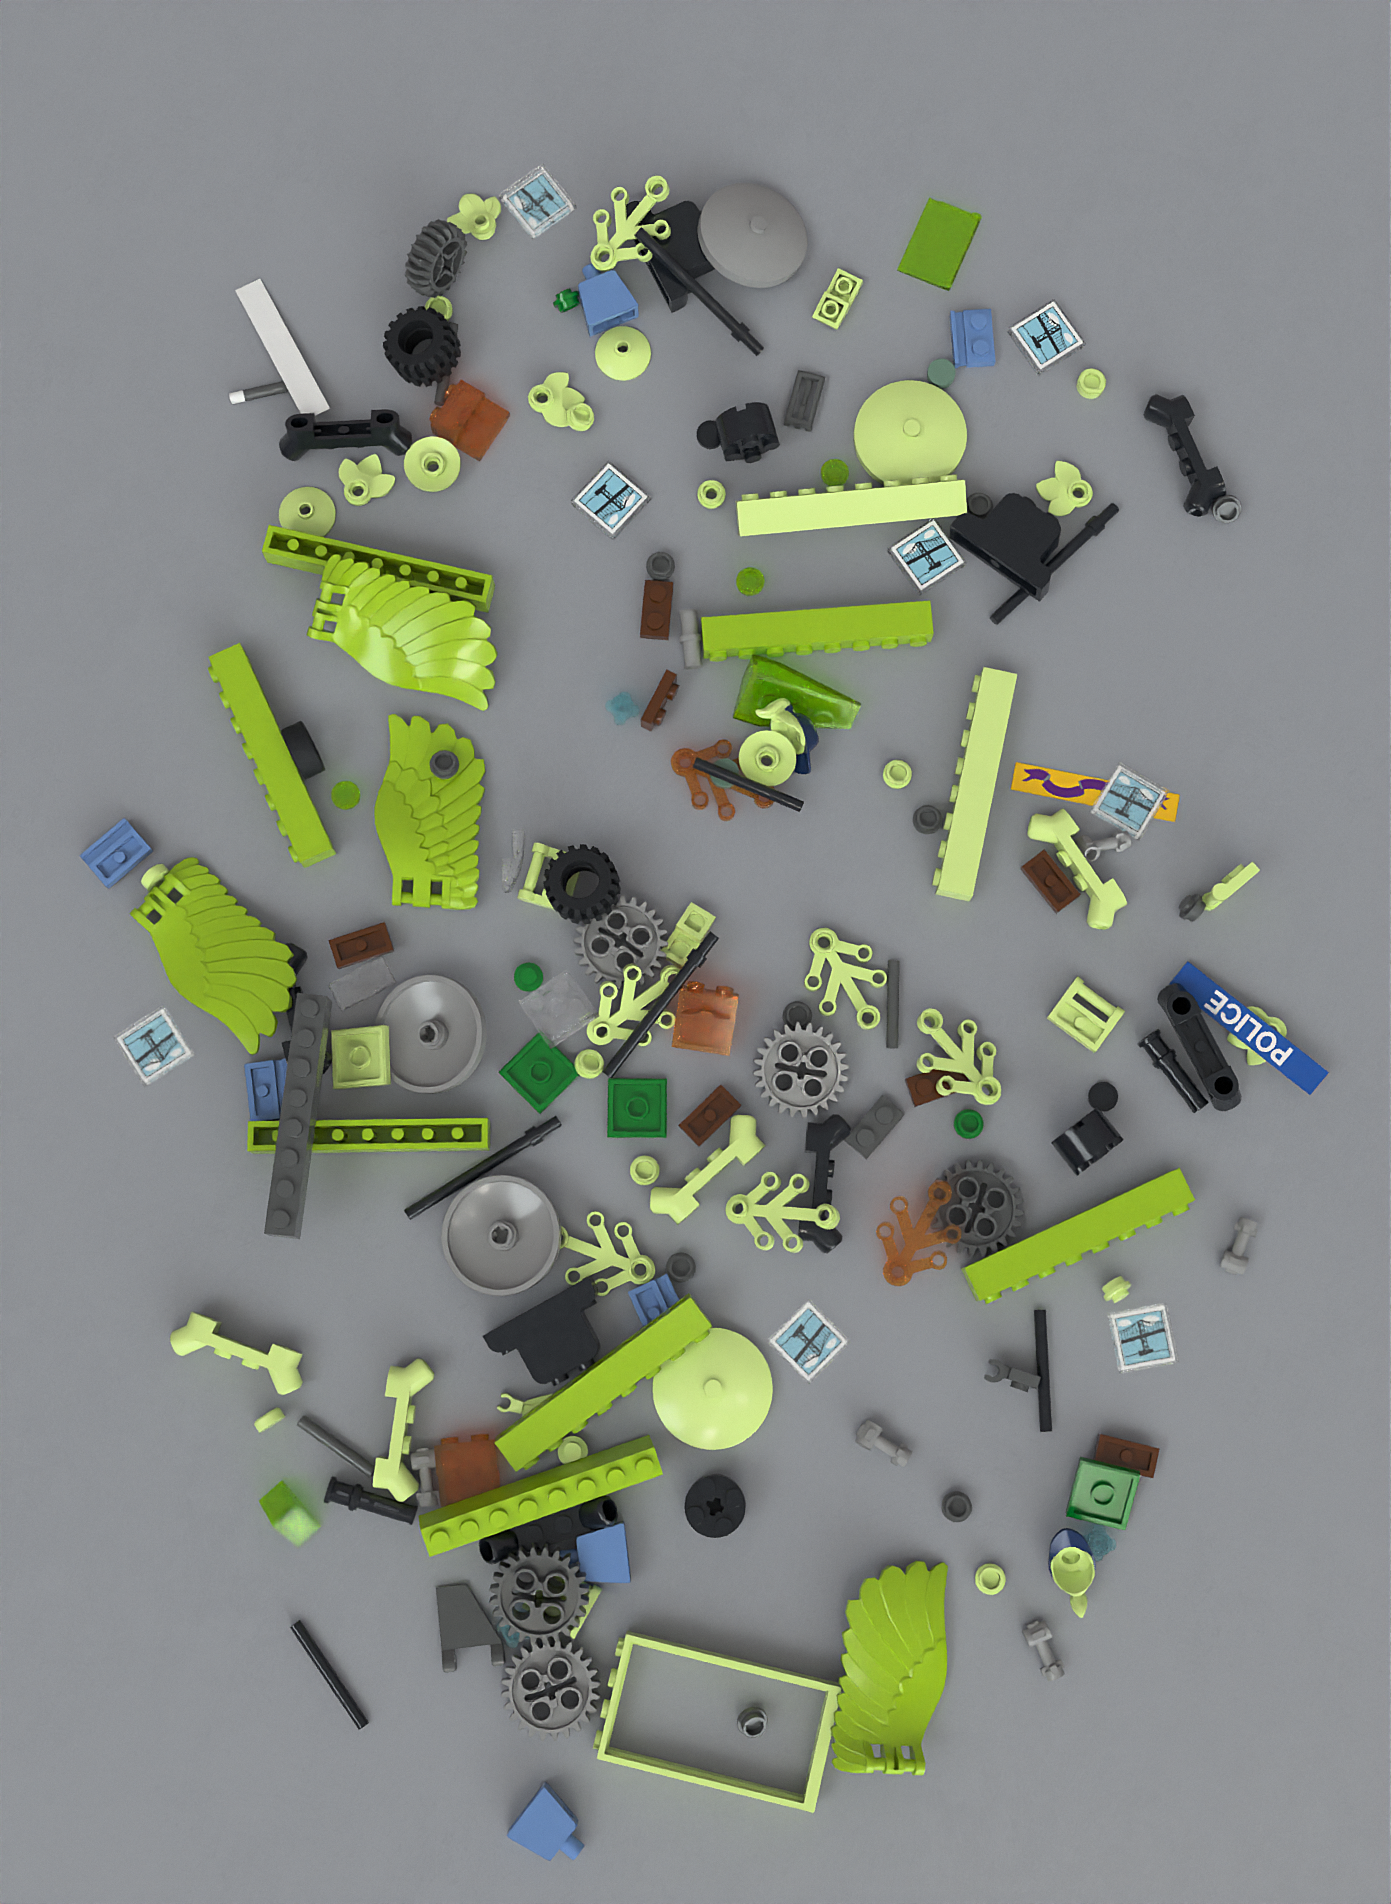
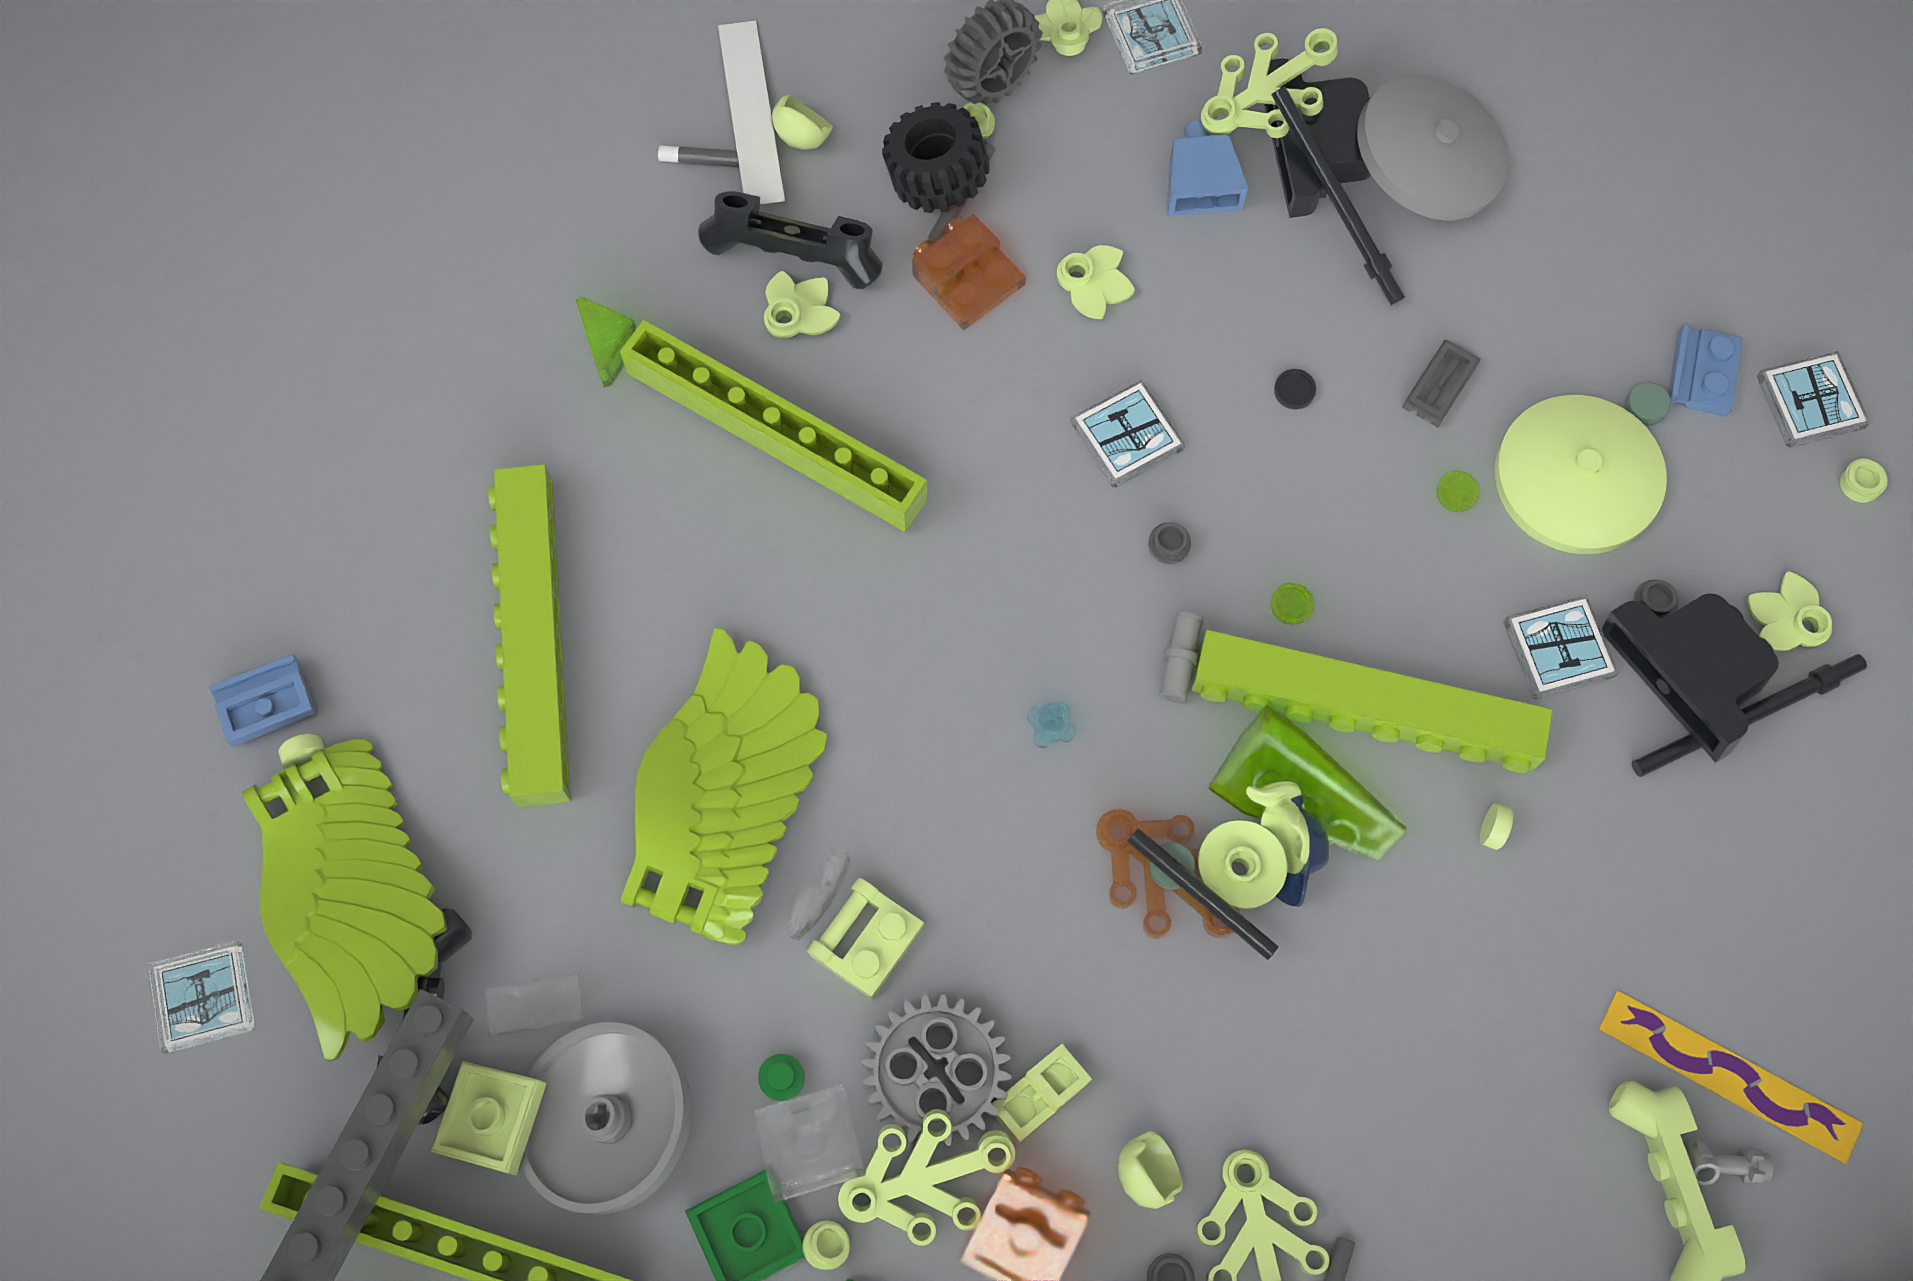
camera: 20 degrees right, 10 degrees down
(246, 541) = (606, 334): none -> clear neon green slope
(265, 1088) = (324, 1116): medium blue plate -> none
(303, 750) = (575, 638): black tyre -> none
(317, 521) = (718, 338): yellowish green dish -> none
(320, 349) = (799, 124): none -> yellowish green hair
(345, 795) = (613, 722): clear neon green plate -> none
(361, 945) = (553, 947): reddish brown plate -> none
(405, 632) = (779, 521): lime animal -> none
(428, 452) = (892, 297): yellowish green dish -> none
(444, 764) = (767, 722): dark grey plate -> none
(566, 300) = (1151, 159): green plate -> none
(571, 863) = (897, 927): black tyre -> none
(580, 417) = (1121, 311): yellowish green plate -> none
(627, 364) = (1206, 263): yellowish green dish -> none
(656, 610) = (1144, 602): reddish brown plate -> none
(666, 690) = (1096, 743): reddish brown plate -> none
(696, 958) = (1041, 1137): black bar -> none
(711, 486) = (1276, 457): yellowish green plate -> none
(746, 432) = (1349, 397): black brick -> none
(766, 958) = (1149, 1171): none -> yellowish green hair
(837, 299) = (1527, 264): yellowish green slope -> none
(851, 507) = (1472, 543): yellowish green brick -> none
(897, 774) = (1431, 950): yellowish green plate -> none
(916, 684) = (1496, 826): none -> yellowish green tile
(927, 819) = (1458, 1034): dark grey plate -> none
(939, 244) = (1689, 235): clear neon green piece -> none
(975, 785) = (1547, 1008): yellowish green brick -> none
(1050, 881) = (1627, 1195): reddish brown plate -> none
(1129, 801) = (1782, 1107): clear tile -> none

